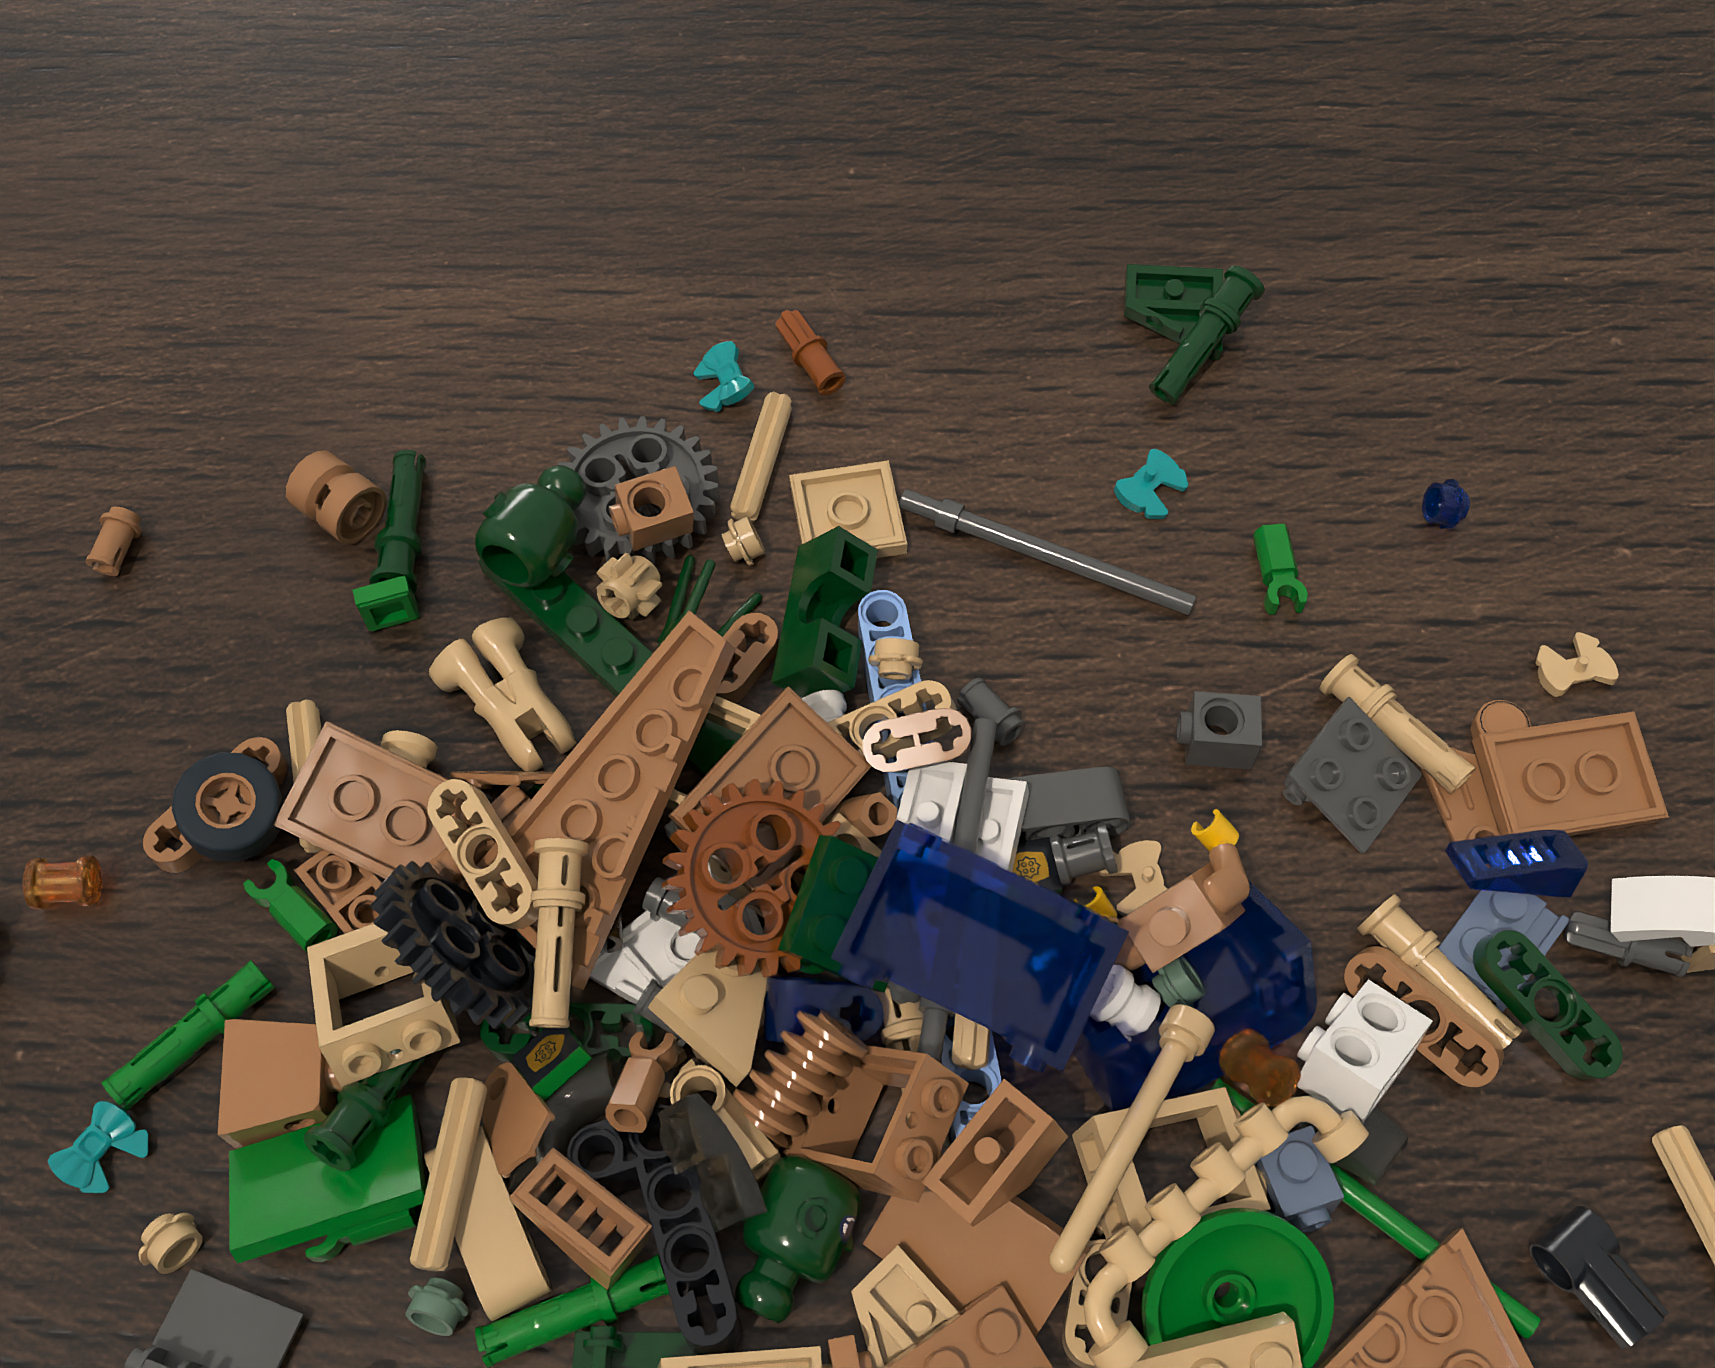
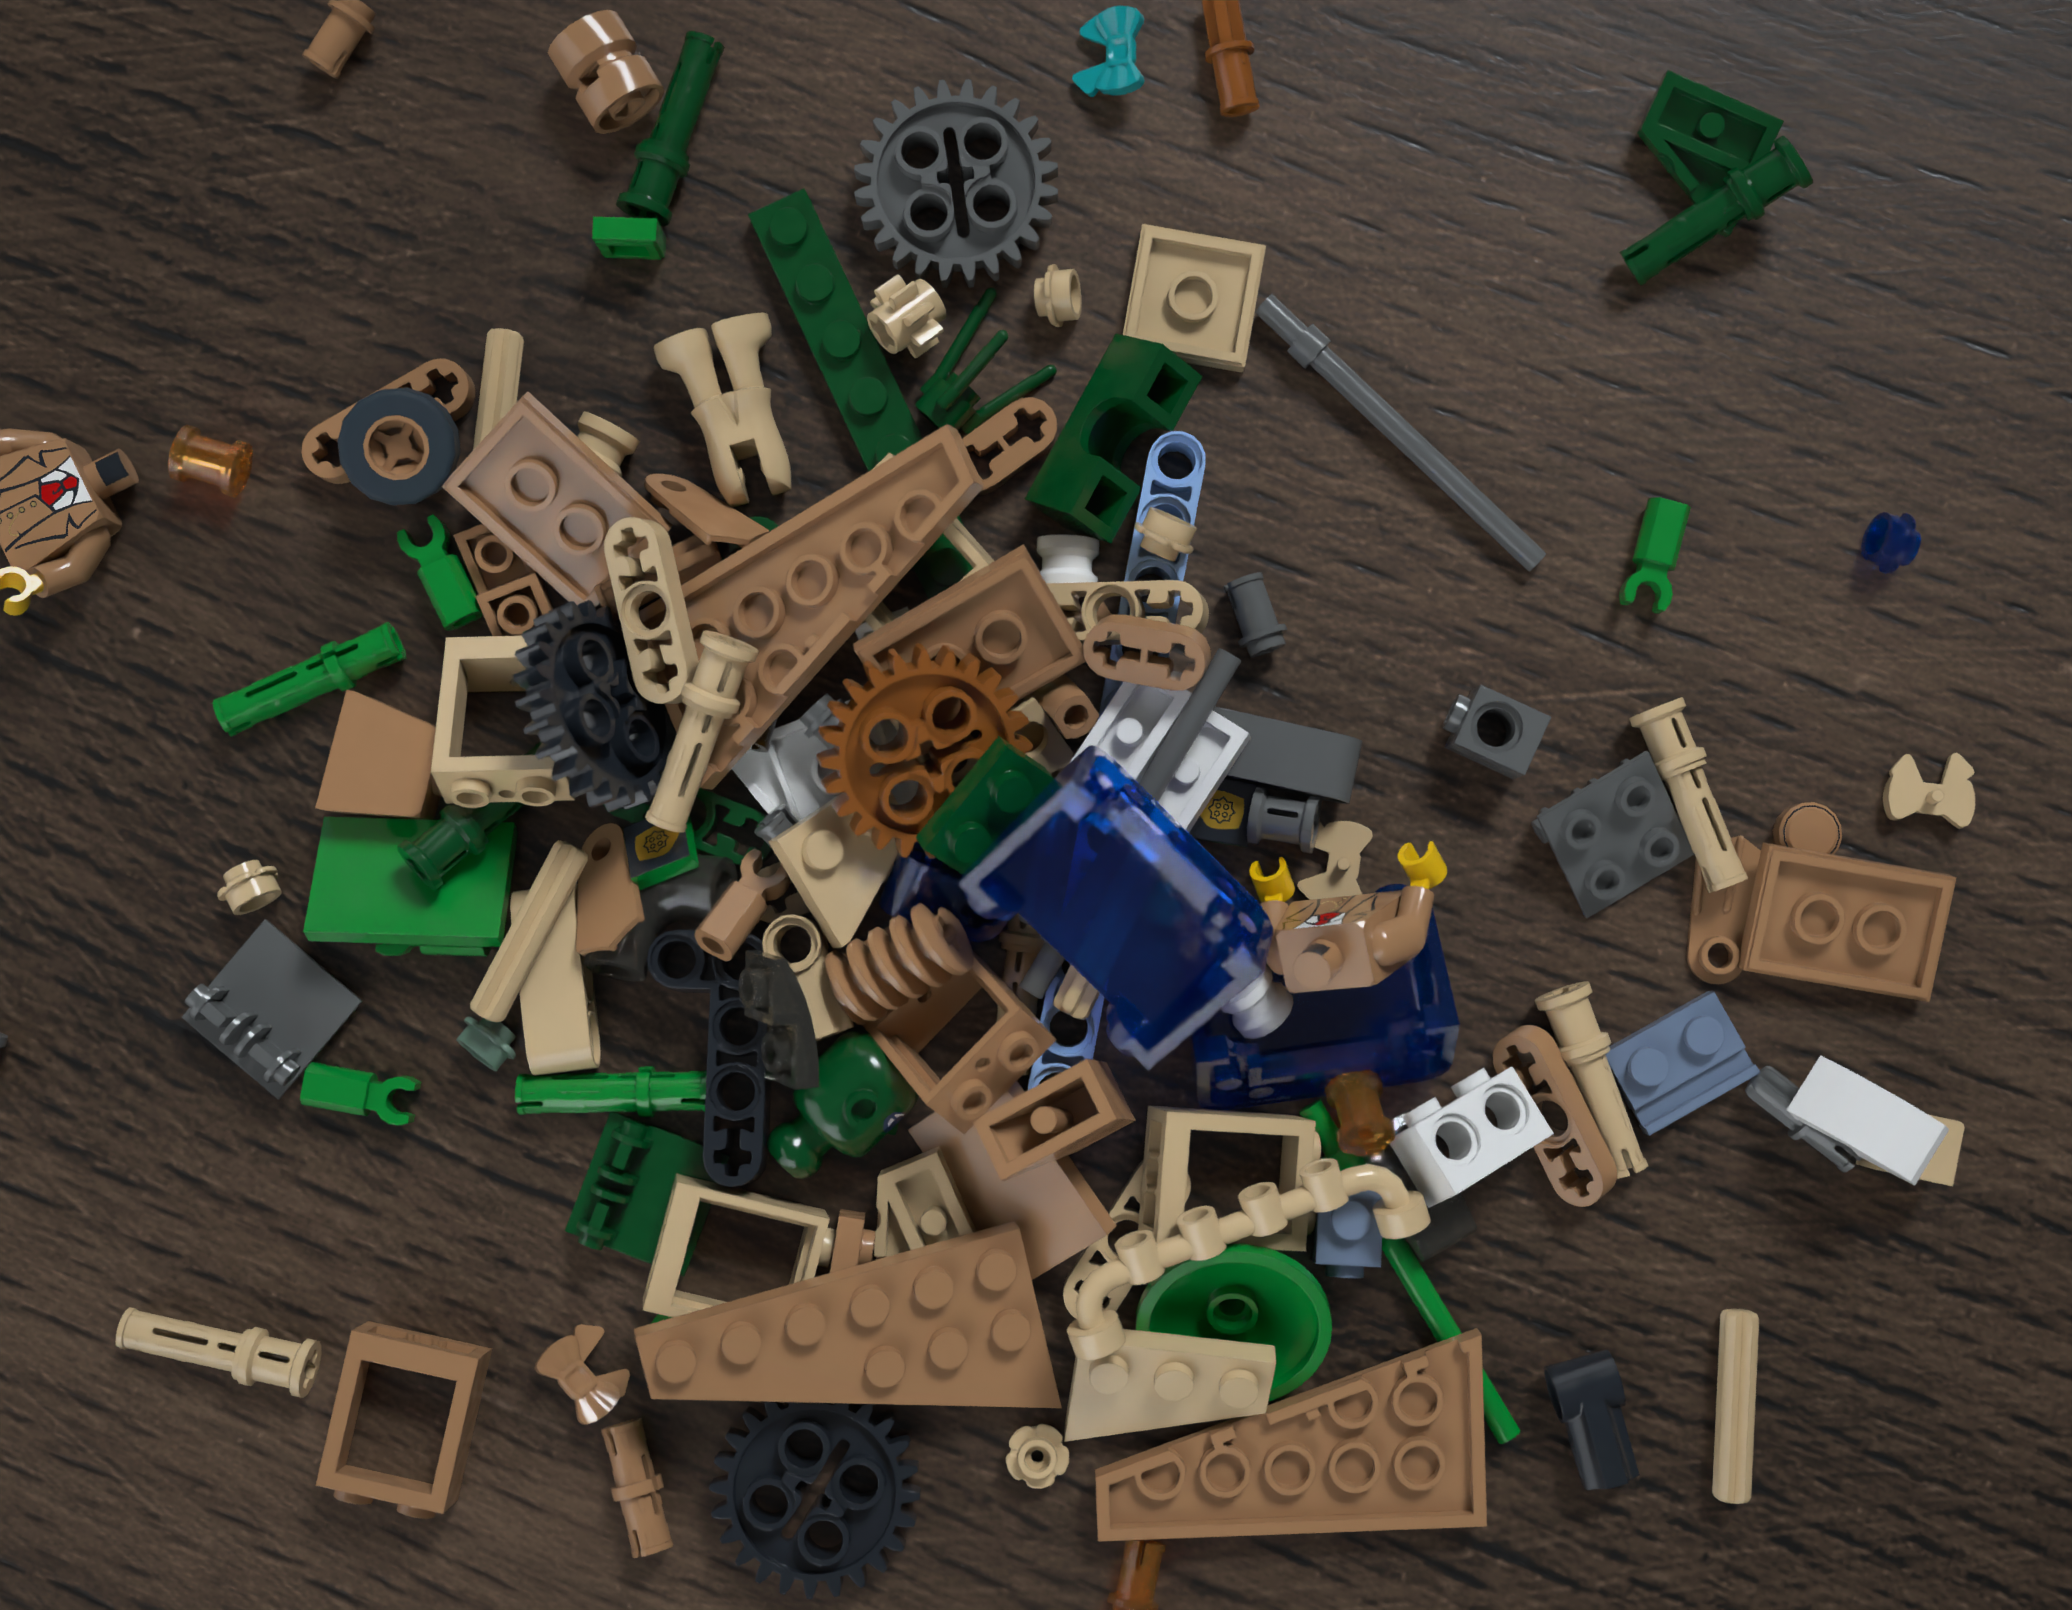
camera: 20 degrees right, 25 degrees up
(109, 1127) = (177, 774): teal piece -> none
(532, 528) = (817, 214): dark green piece -> none
(566, 1235) = (672, 1066): medium nougat slope -> none
(657, 488) = (987, 229): medium nougat brick -> none
(761, 457) = (1119, 183): tan axle -> none
(1138, 491) = (1542, 390): teal piece -> none
(1179, 983) = (1322, 1004): sand green plate -> none
(1183, 1036) = (1291, 1064): tan piece -> none
(1521, 863) = (1774, 997): clear blue slope -> none
(1572, 1007) = (1705, 1171): dark green beam -> none

